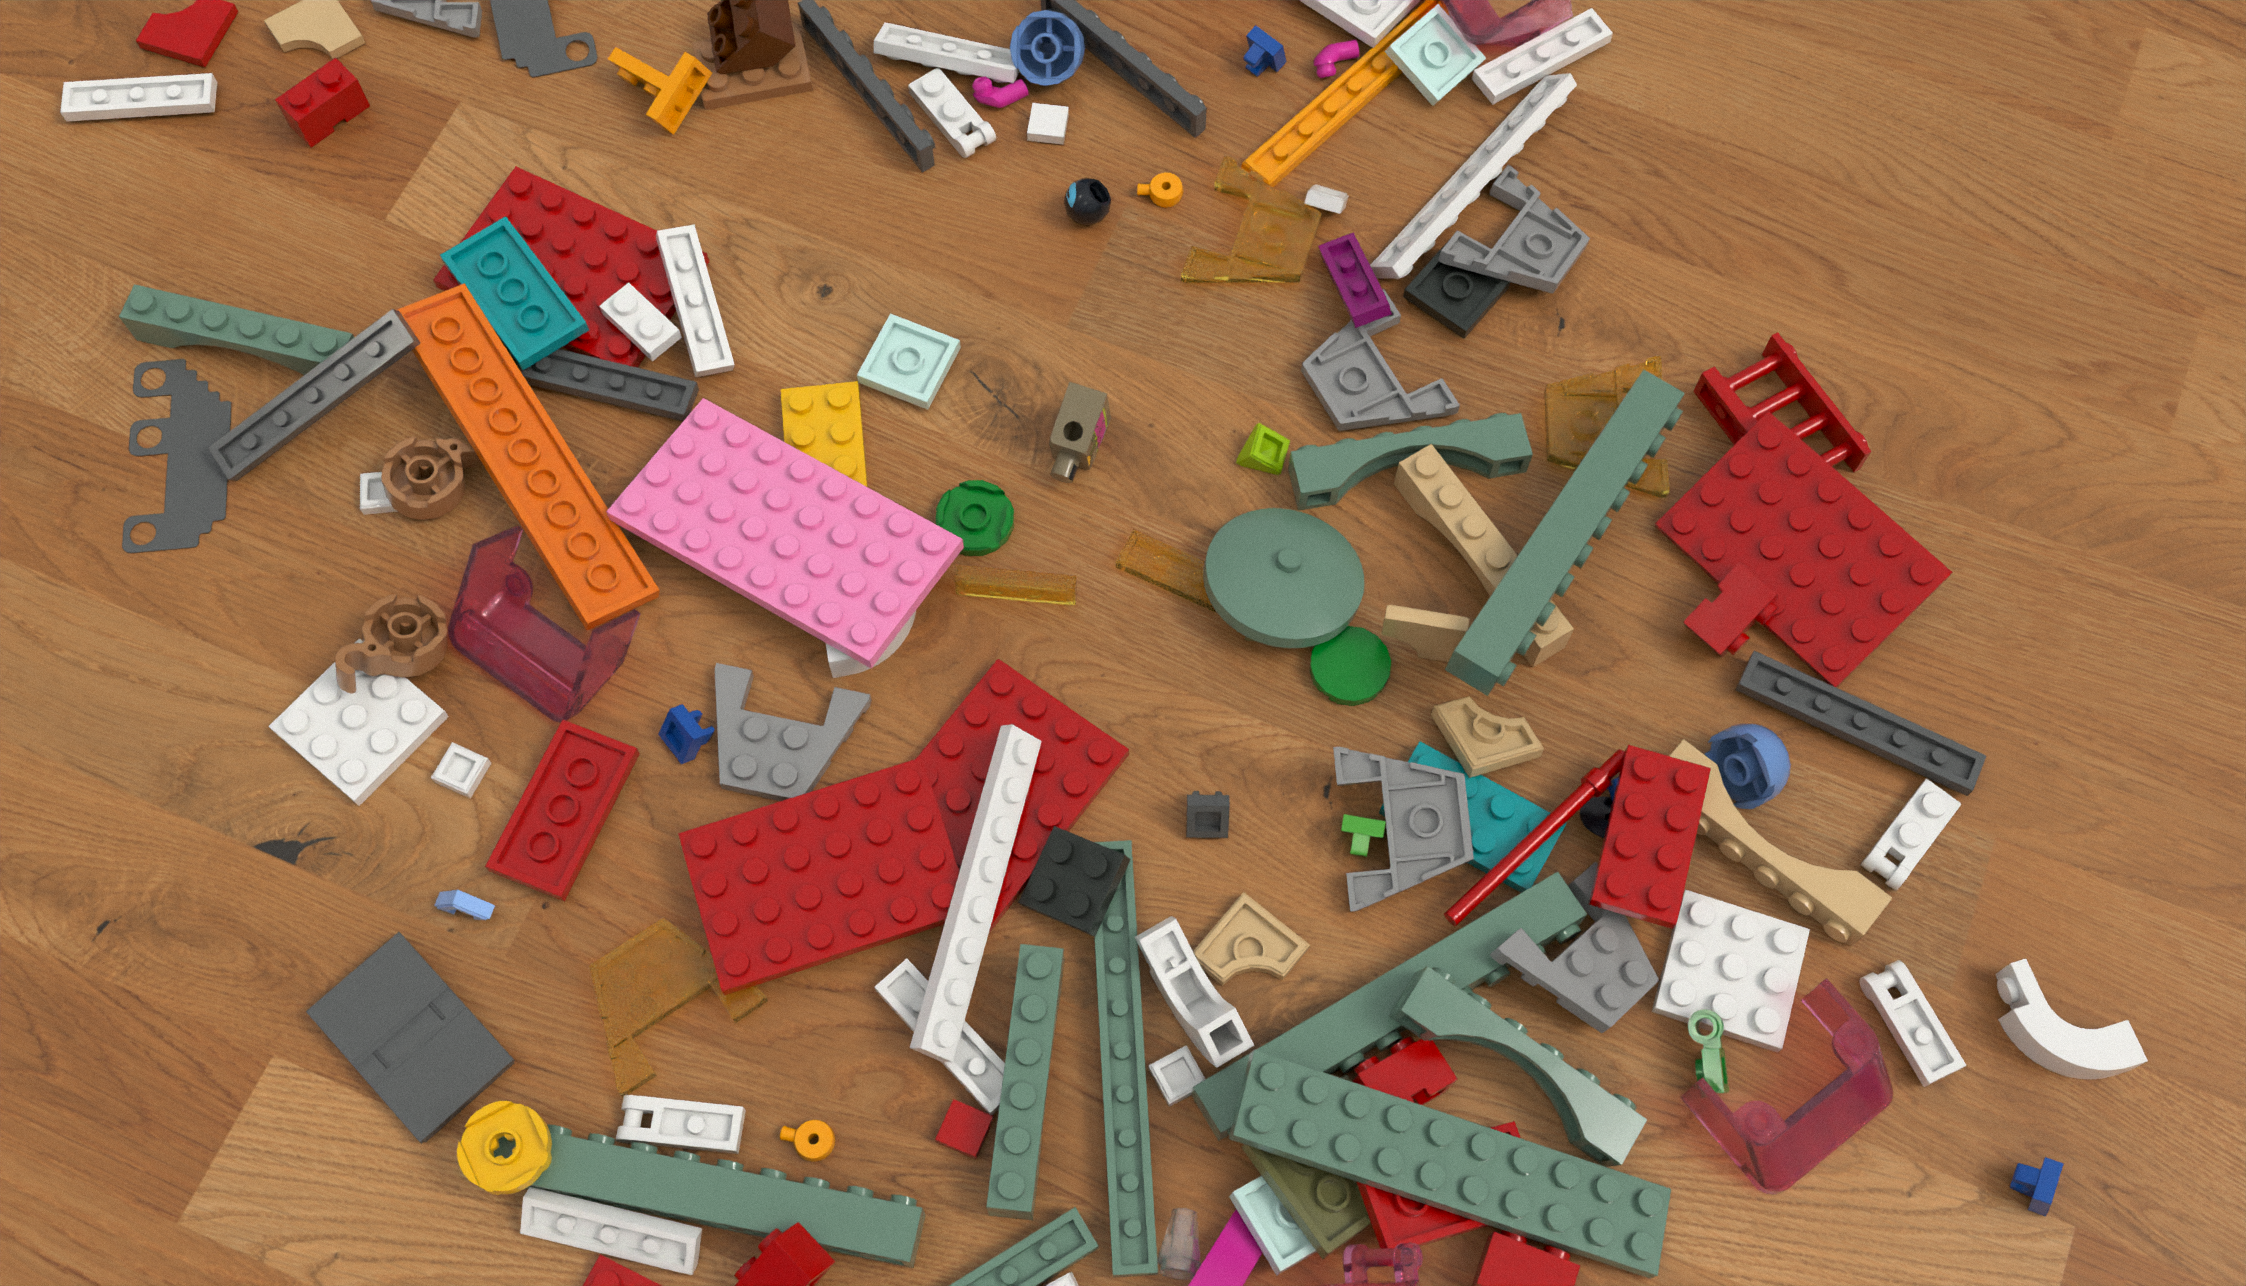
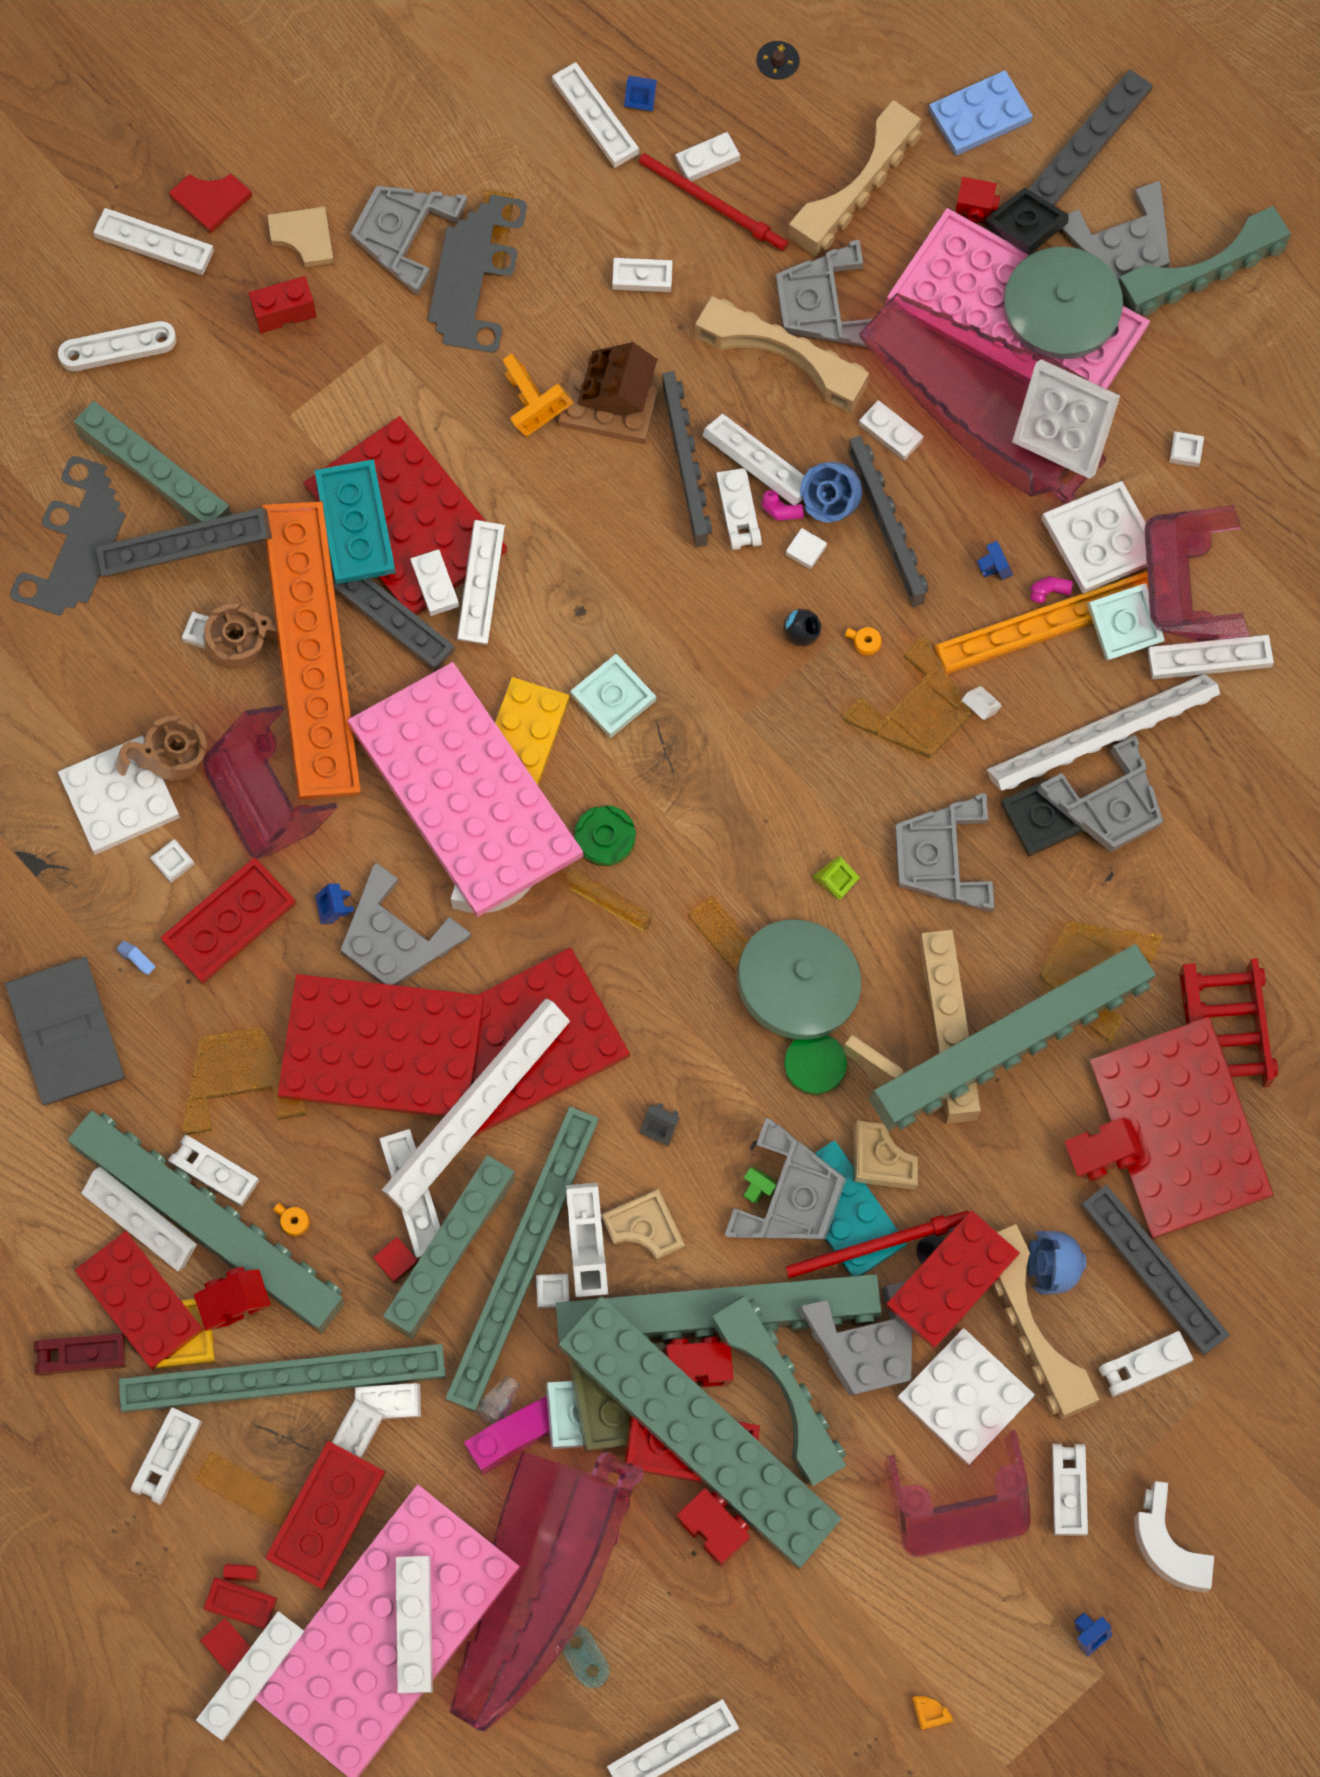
camera: 25 degrees right, 5 degrees up
(141, 222) = (117, 346): none -> white plate
(481, 1138) = (81, 1121): yellow plate -> none
(1074, 881) = (546, 1128): pearl dark grey plate -> none
(1078, 431) = (713, 796): dark tan torso -> none
(1354, 280) = (966, 777): magenta plate -> none
(1484, 446) = (873, 916): sand green arch -> none
(1713, 1062) = (914, 1451): plate -> none

